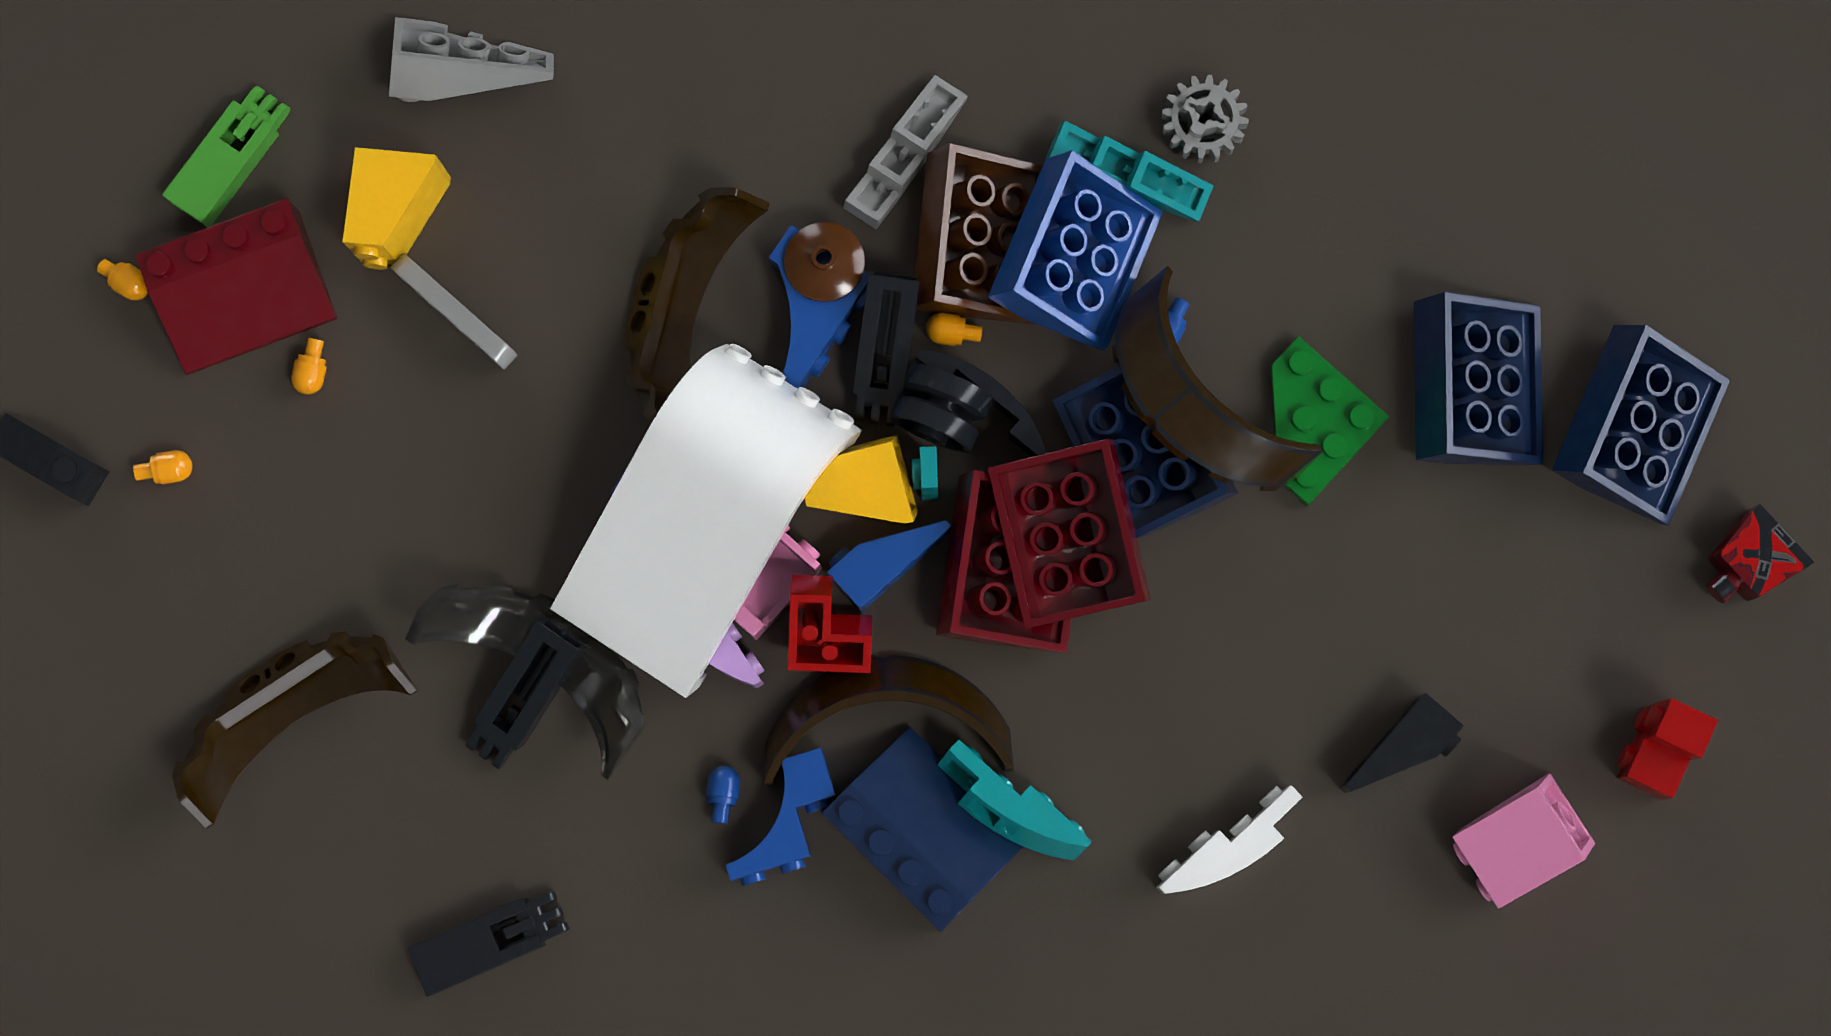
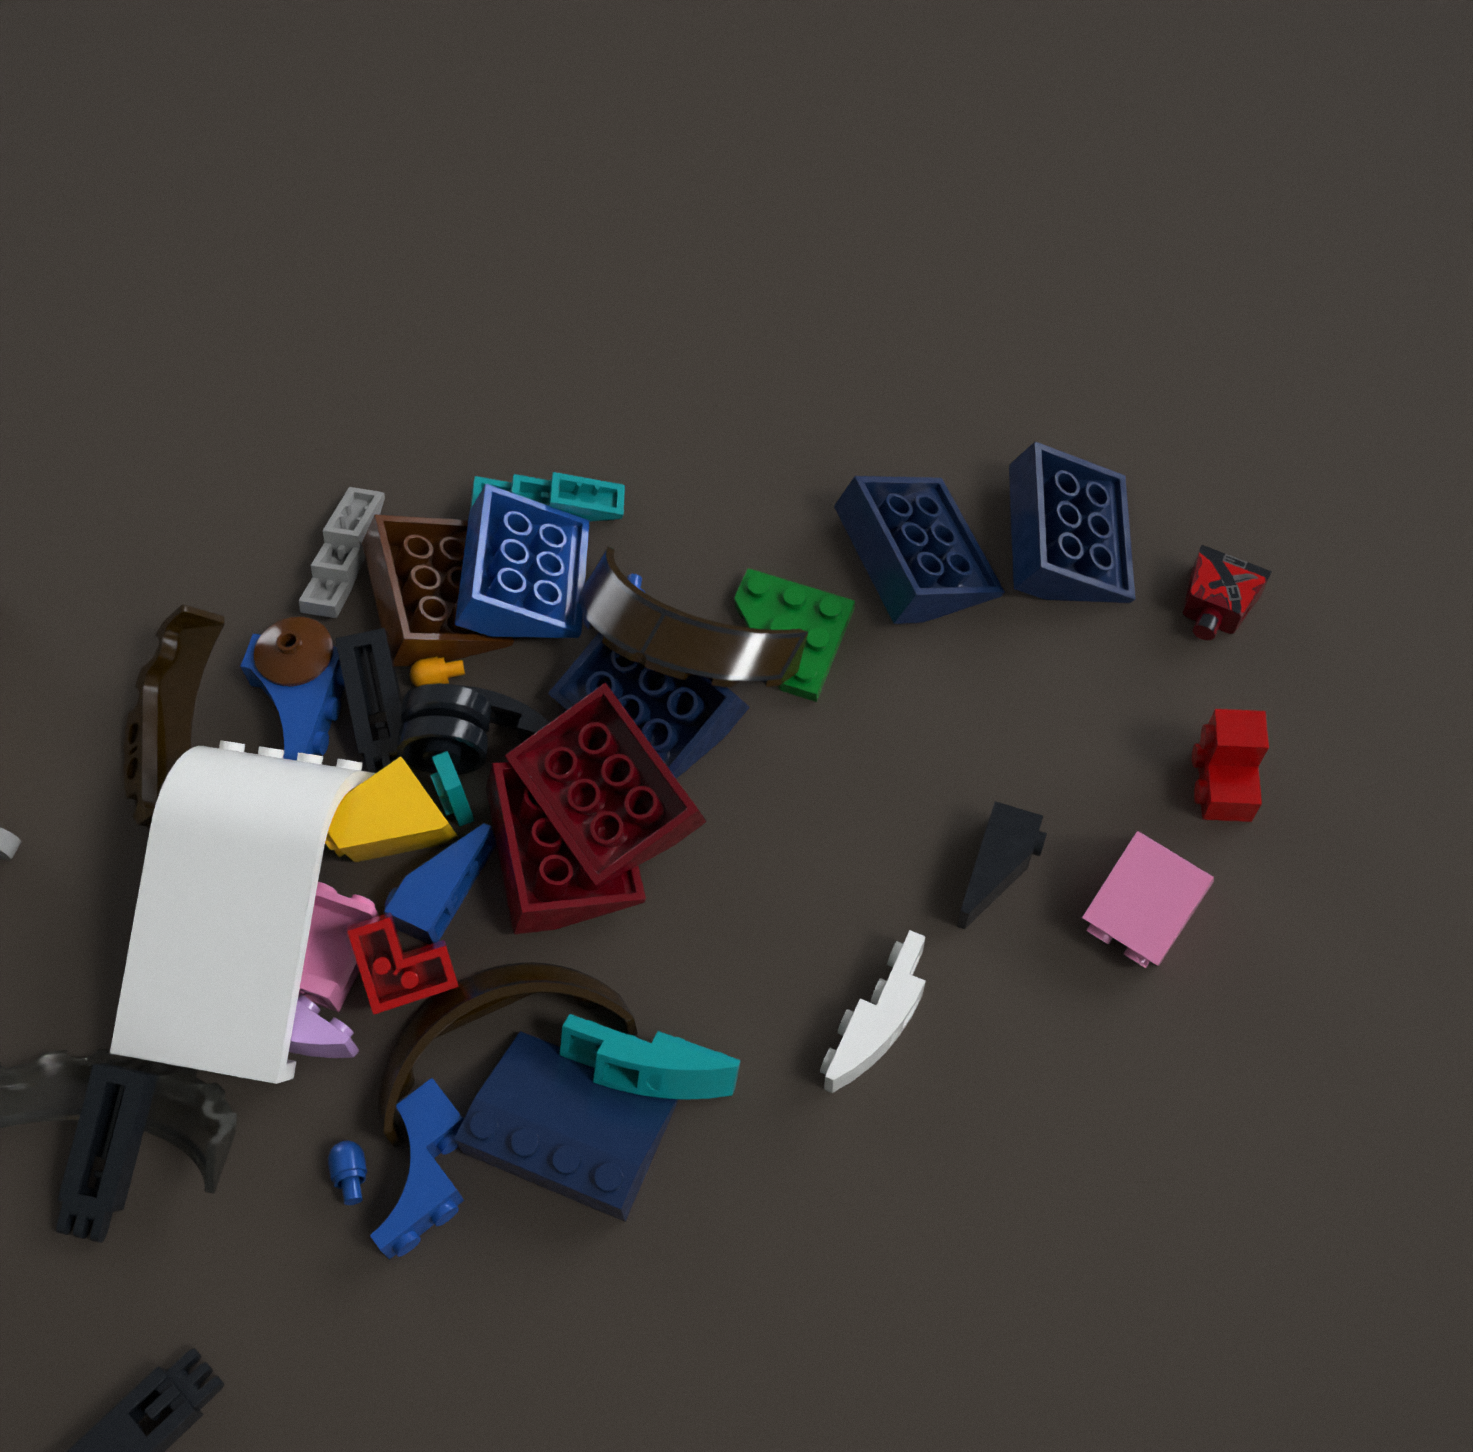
camera: 25 degrees left, 20 degrees down
(1217, 127) = (595, 438): light grey gear -> none

